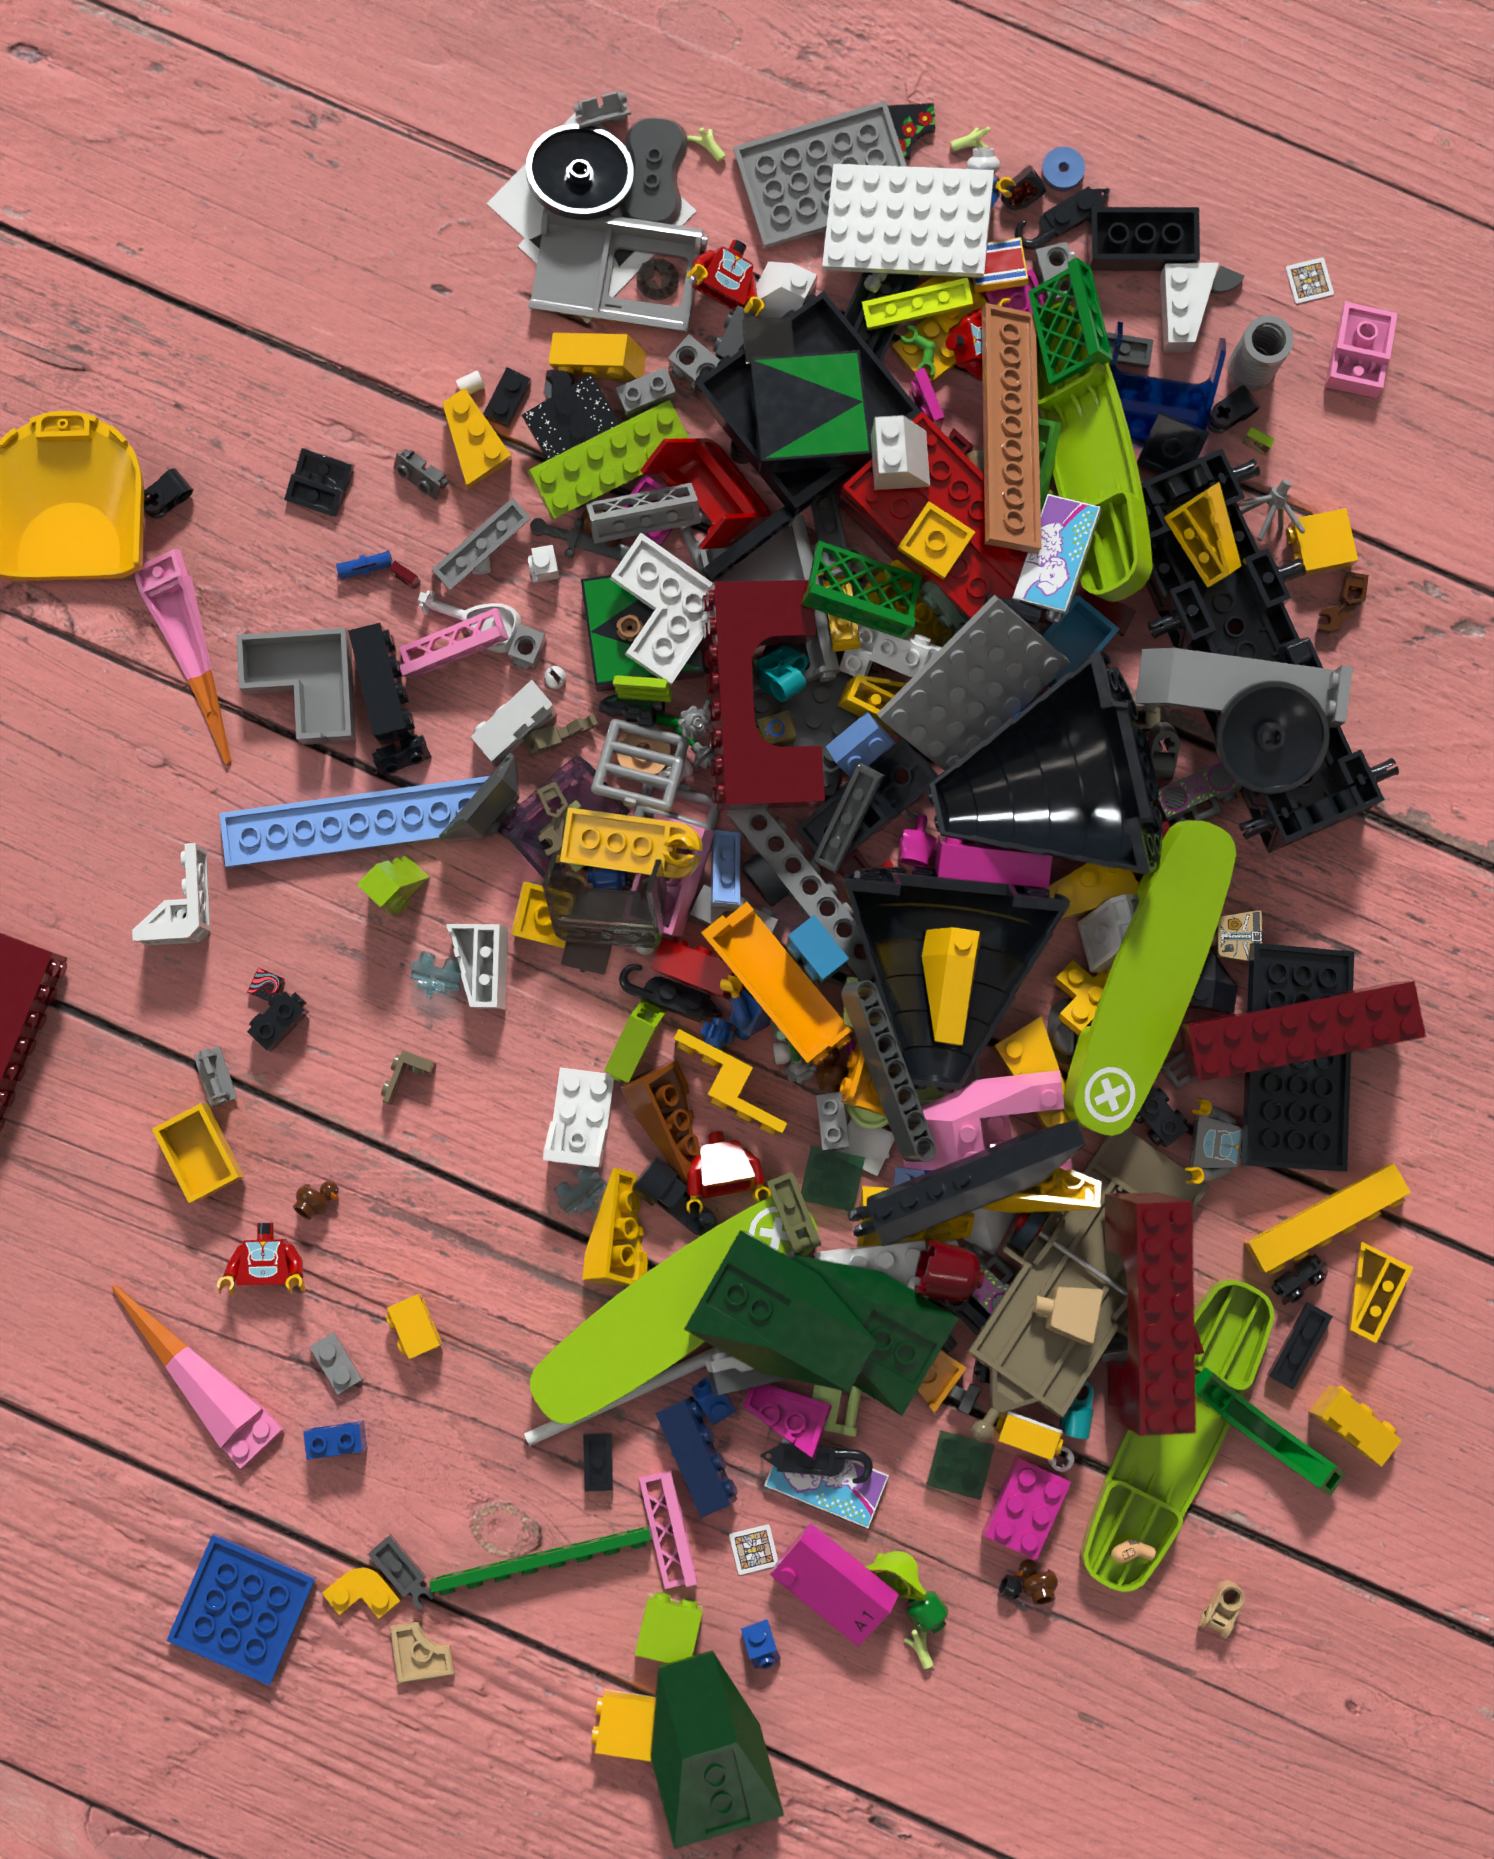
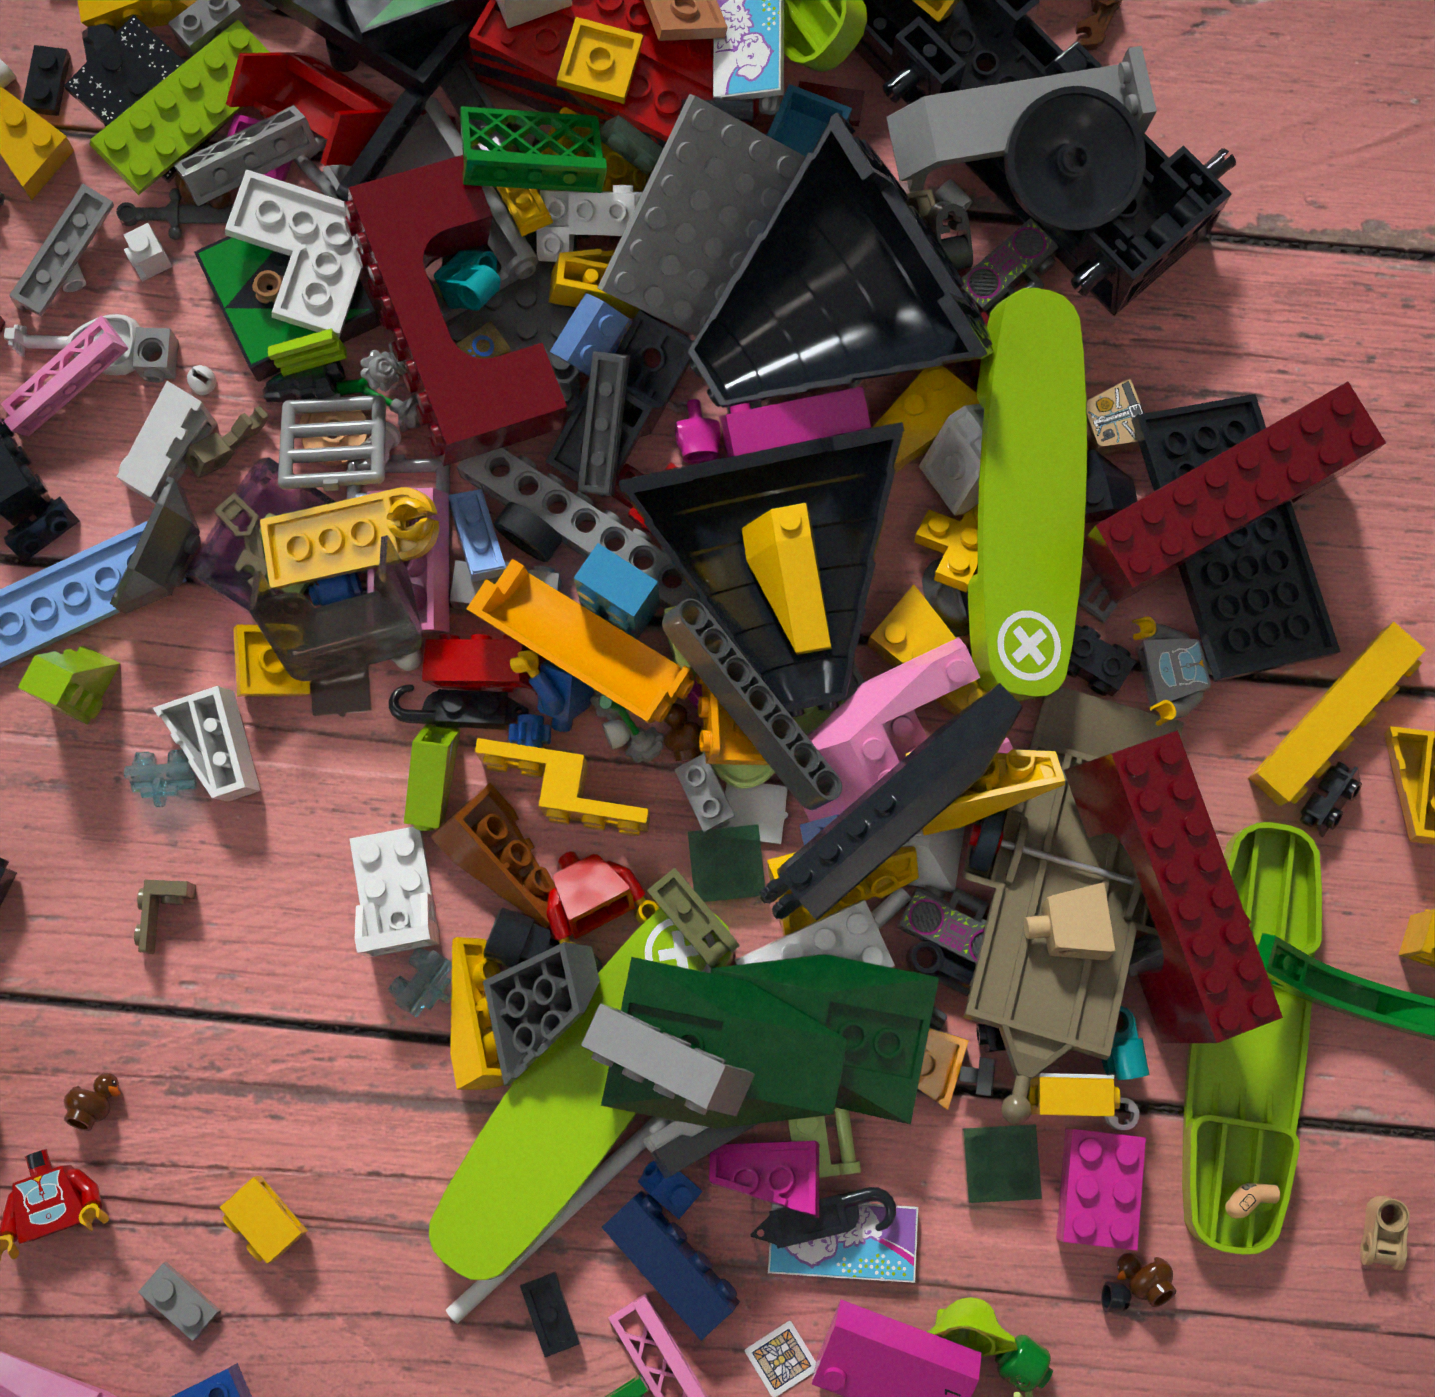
camera: 20 degrees left, 5 degrees down
(661, 1239) = (538, 1003): none -> dark grey wedge
(741, 1316) = (666, 1062): none -> light grey wedge
(948, 1272) = (906, 926): dark red cylinder -> none
(1176, 718) = (954, 194): none -> white hinge
(1299, 1345) = (1360, 878): black plate -> none

